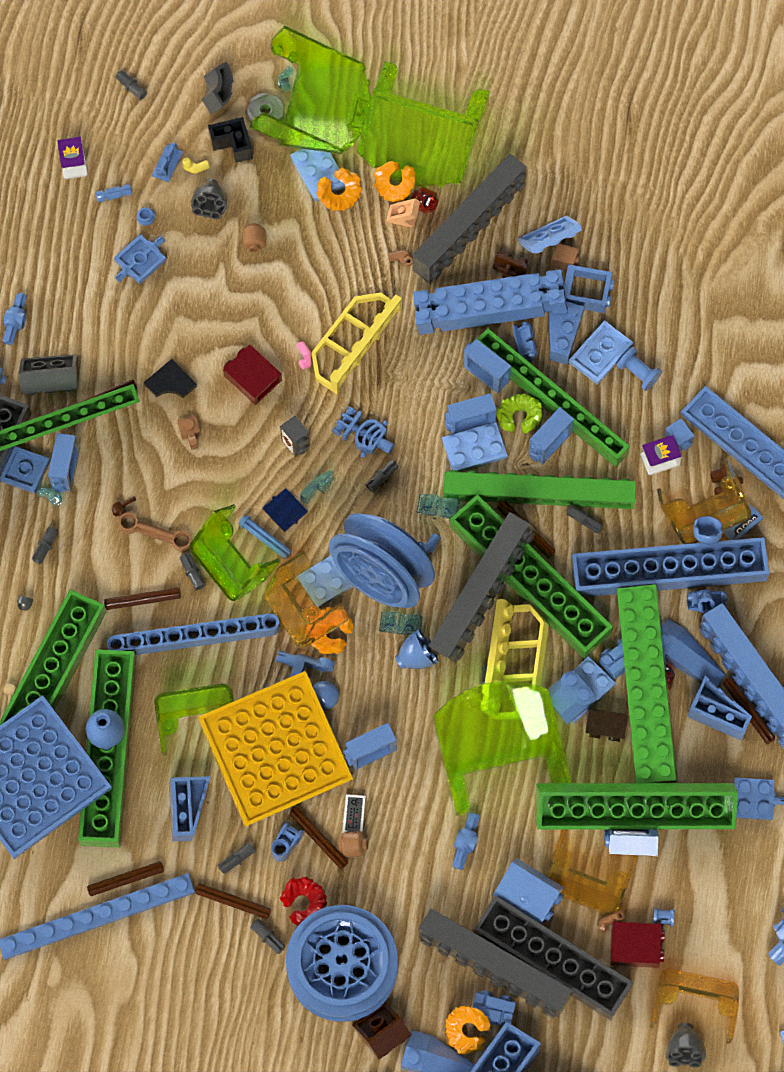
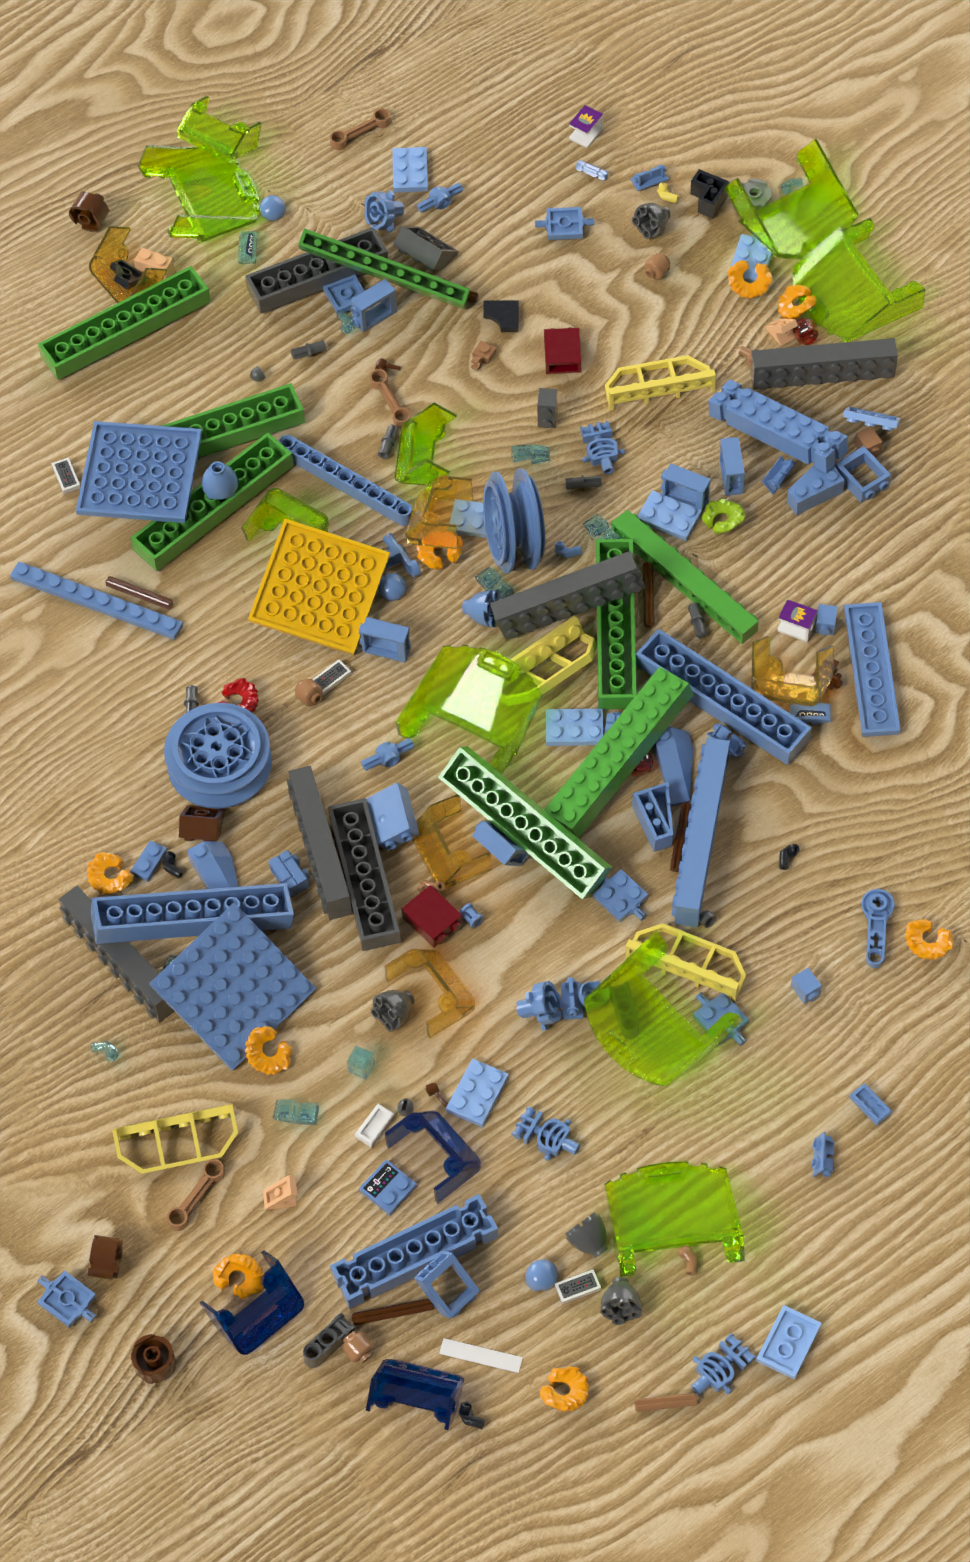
camera: 45 degrees right, 10 degrees down
(131, 84) = (677, 112): dark grey axle -> none
(142, 598) = (337, 432): reddish brown axle -> none
(145, 216) = (598, 200): medium blue plate -> none
(185, 805) = (225, 577): medium blue wedge -> none
(219, 87) = (738, 152): dark grey brick -> none
(233, 901) = (193, 664): reddish brown axle -> none
(236, 858) = (223, 639): dark grey axle -> none
(264, 536) = (457, 440): medium blue axle -> none
(285, 510) = (493, 453): clear blue piece -> none
(288, 839) = (266, 655): medium blue piece -> none
(306, 353) = (608, 372): bright pink arm -> none
(318, 838) = (291, 674): reddish brown axle -> none
(455, 1033) = (254, 860): light orange piece -> none
(508, 265) = (822, 414): reddish brown hips -> none
(550, 436) = (728, 553): medium blue window -> none
(553, 397) = (758, 525): bright green brick -> none
(571, 696) = (558, 720): medium blue slope -> none
(600, 352) = (828, 523): light blue plate -> none
(606, 724) = (564, 757): dark brown brick -> none
(639, 368) = (845, 564): medium blue piece -> none
(705, 600) = (728, 733): medium blue bush -> none
(707, 530) = (772, 687): medium blue hair -> none

